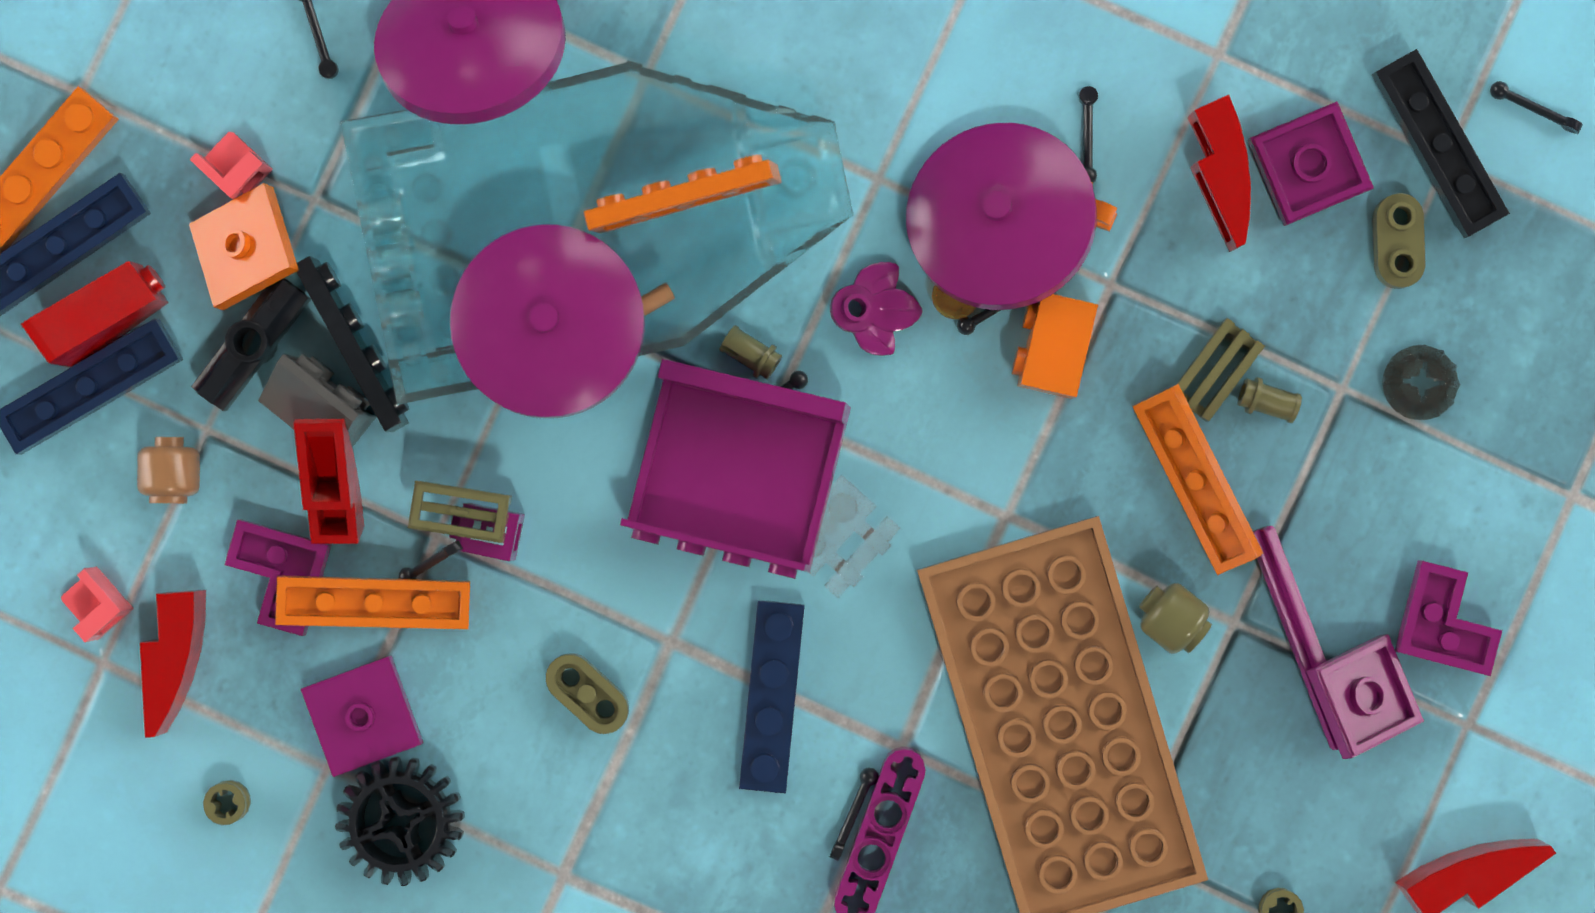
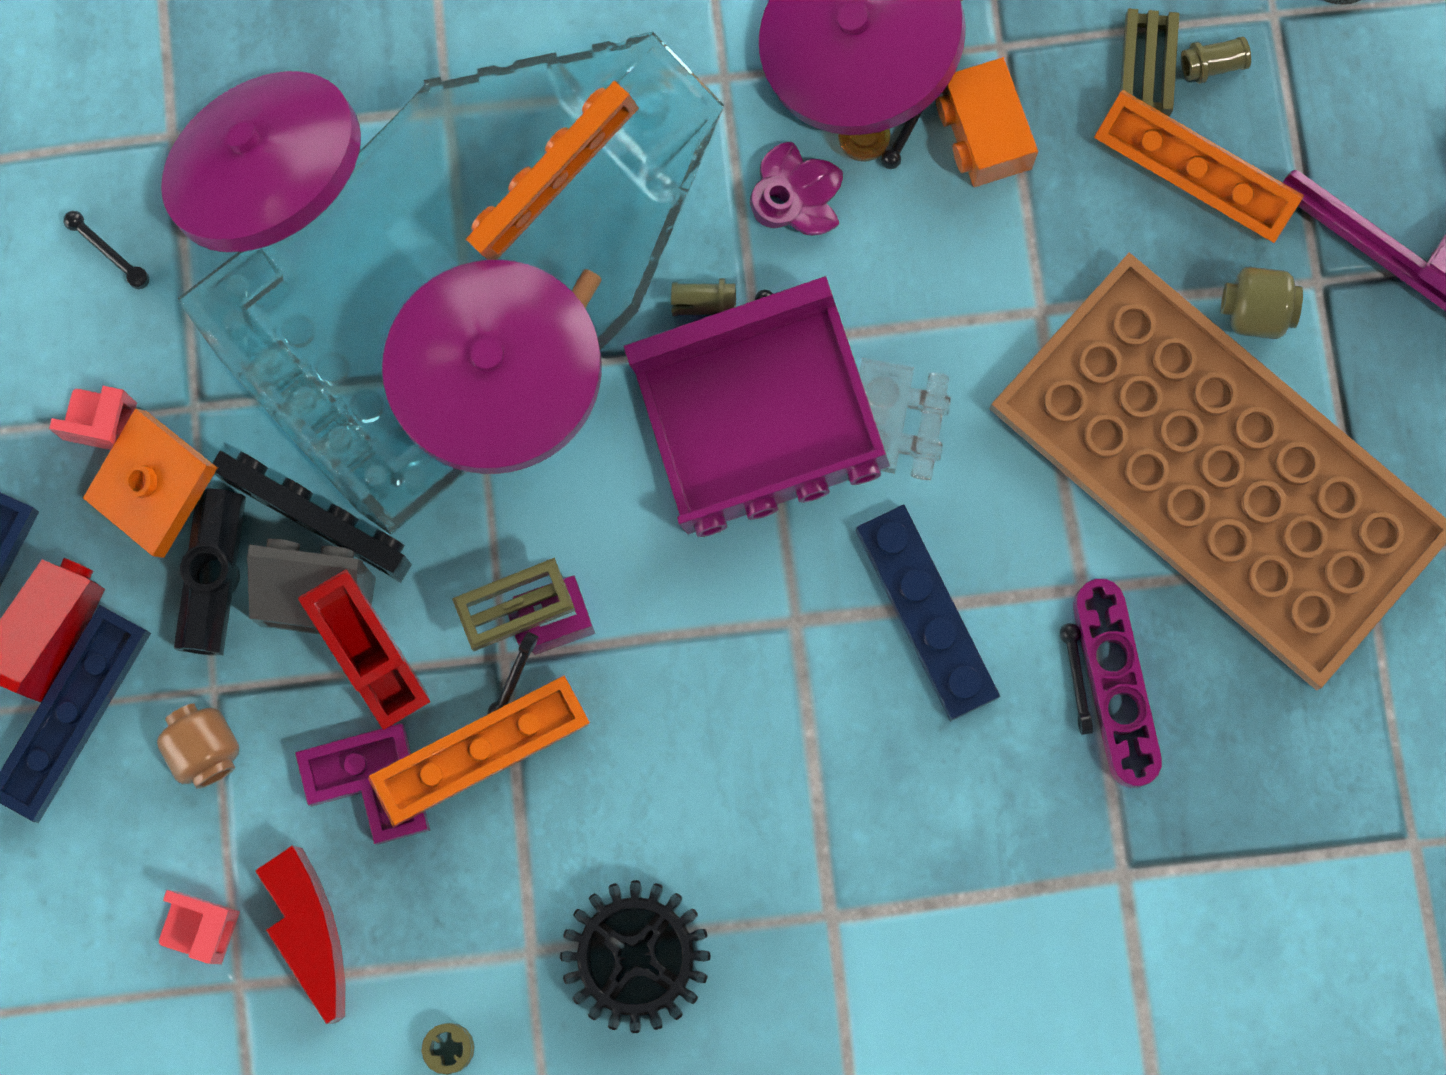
camera: 30 degrees left, 10 degrees down
(362, 716) = (534, 877): magenta plate -> none
(584, 697) = (746, 714): olive plate -> none

